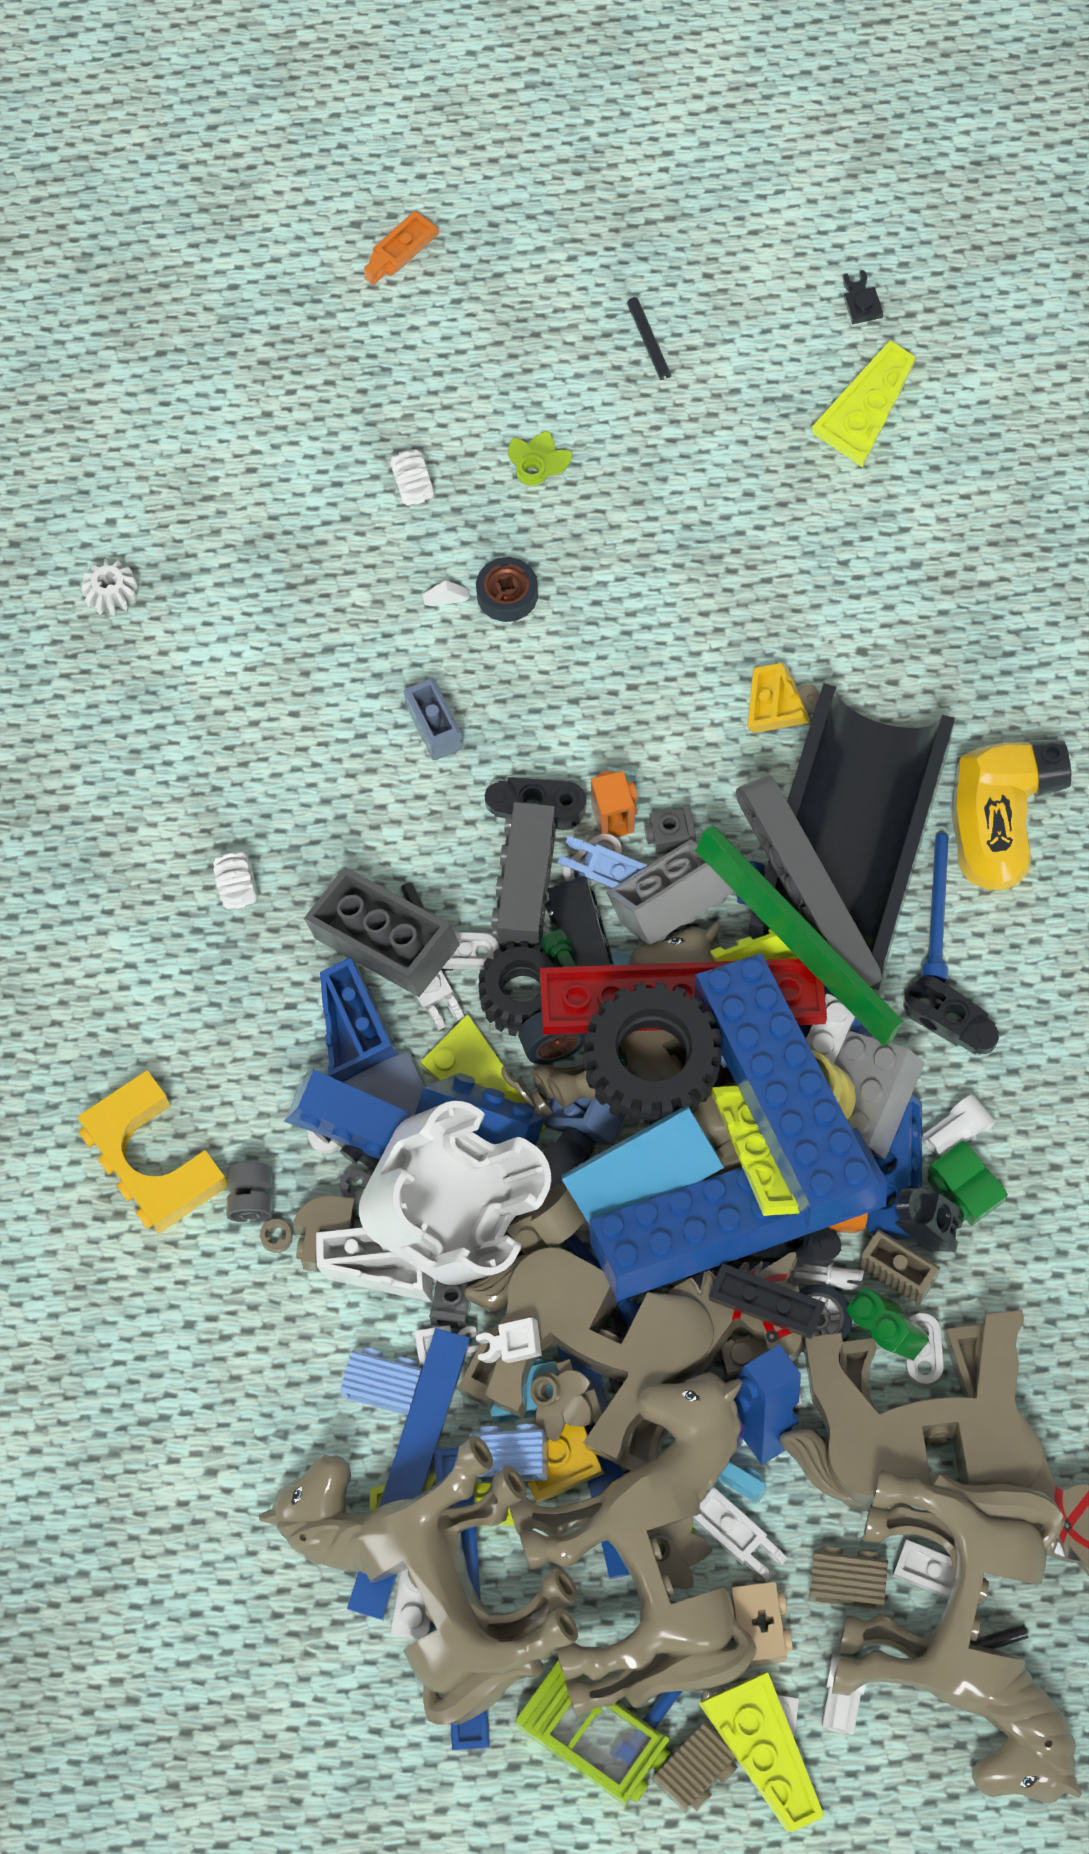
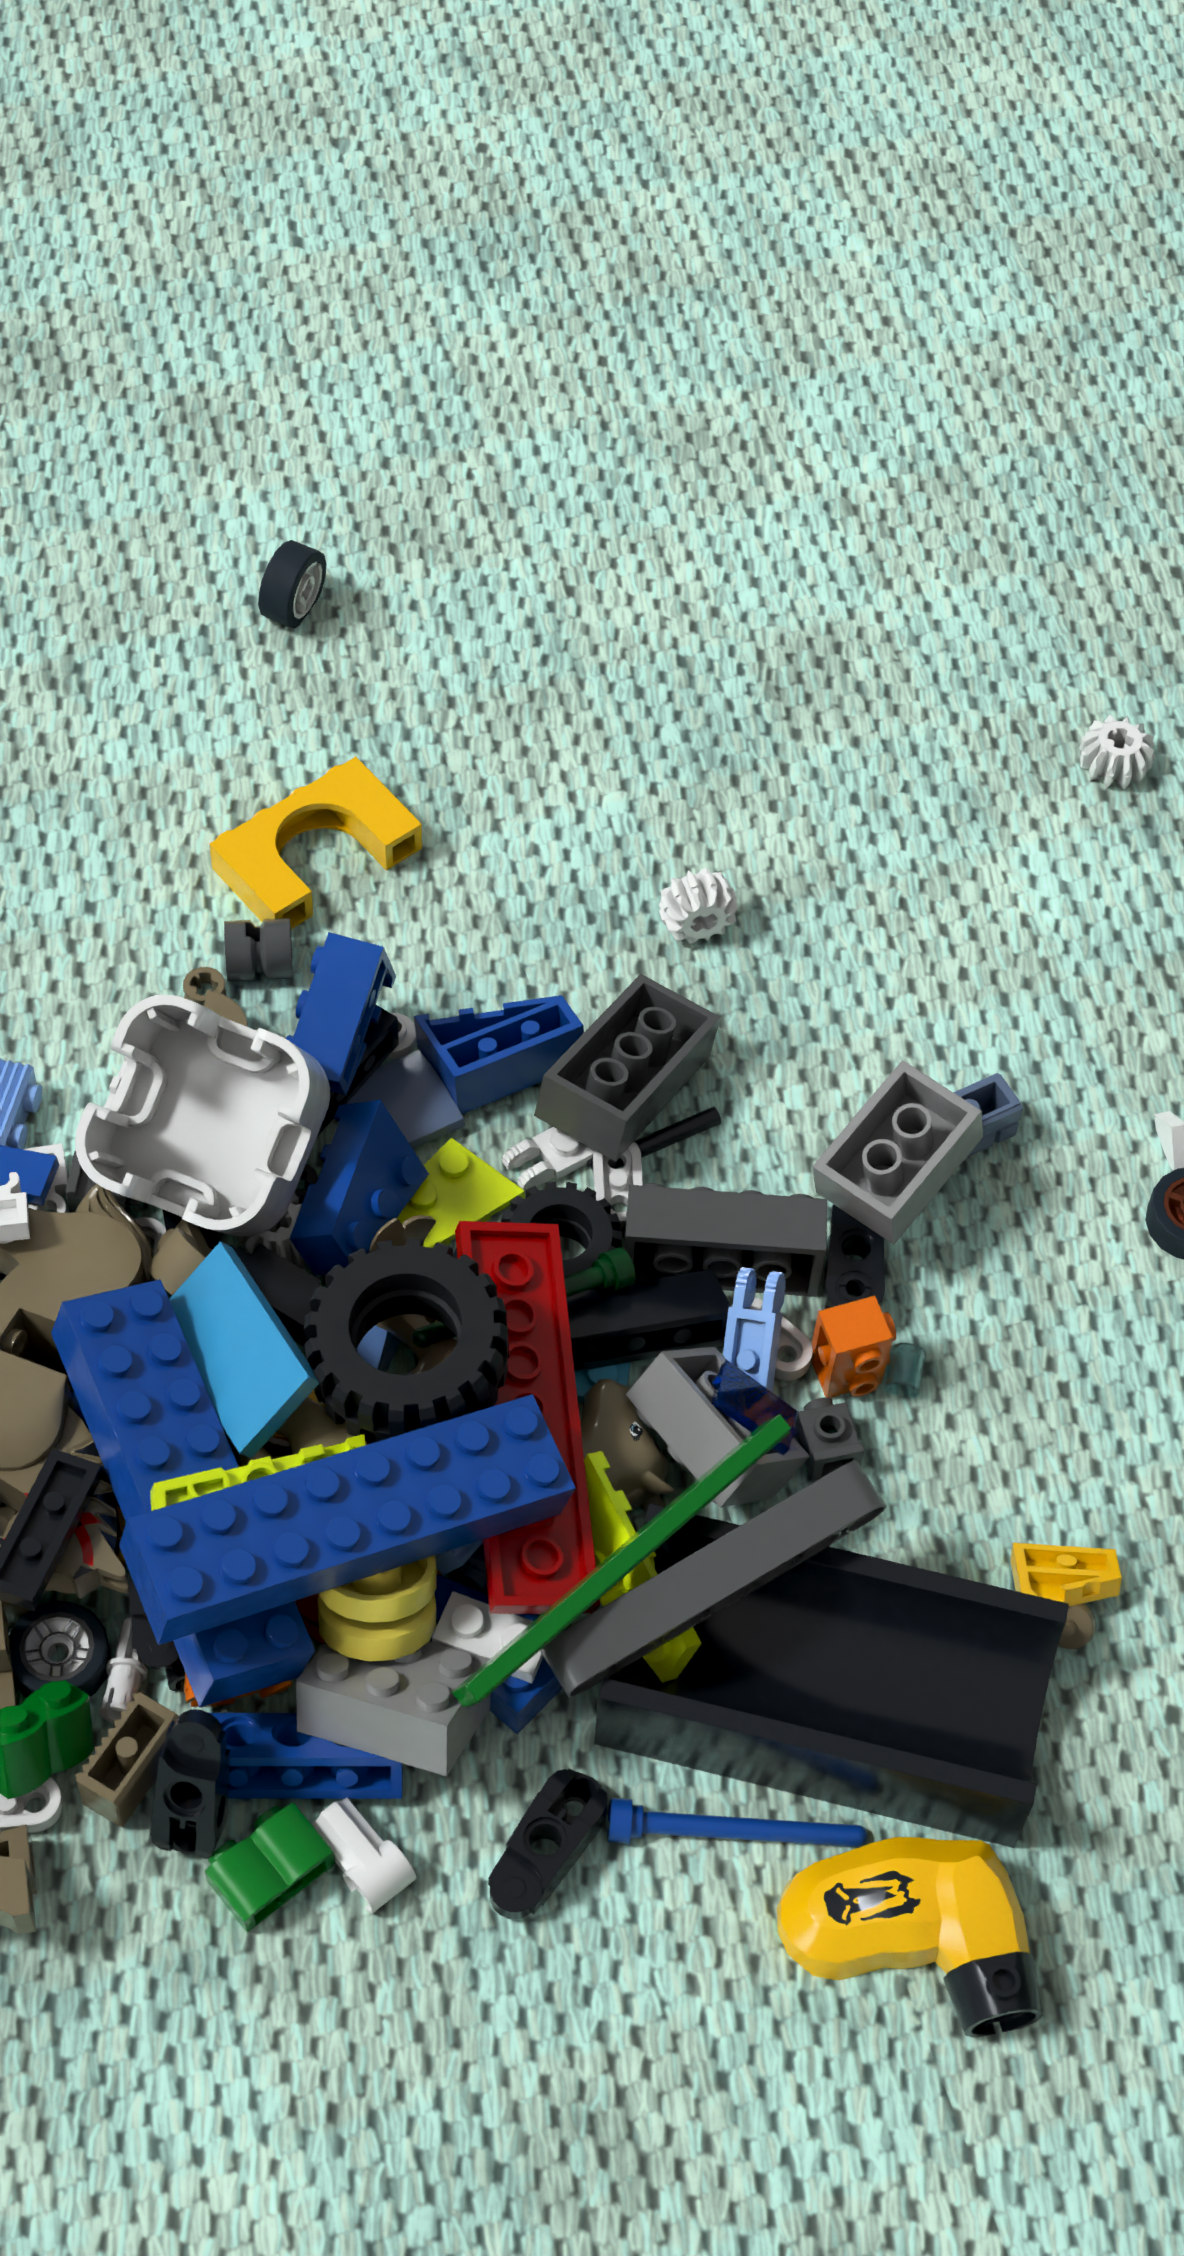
camera: 80 degrees right, 10 degrees down
(478, 753) = (898, 1151): none -> light grey brick
(662, 865) = (750, 1402): none -> clear blue piece

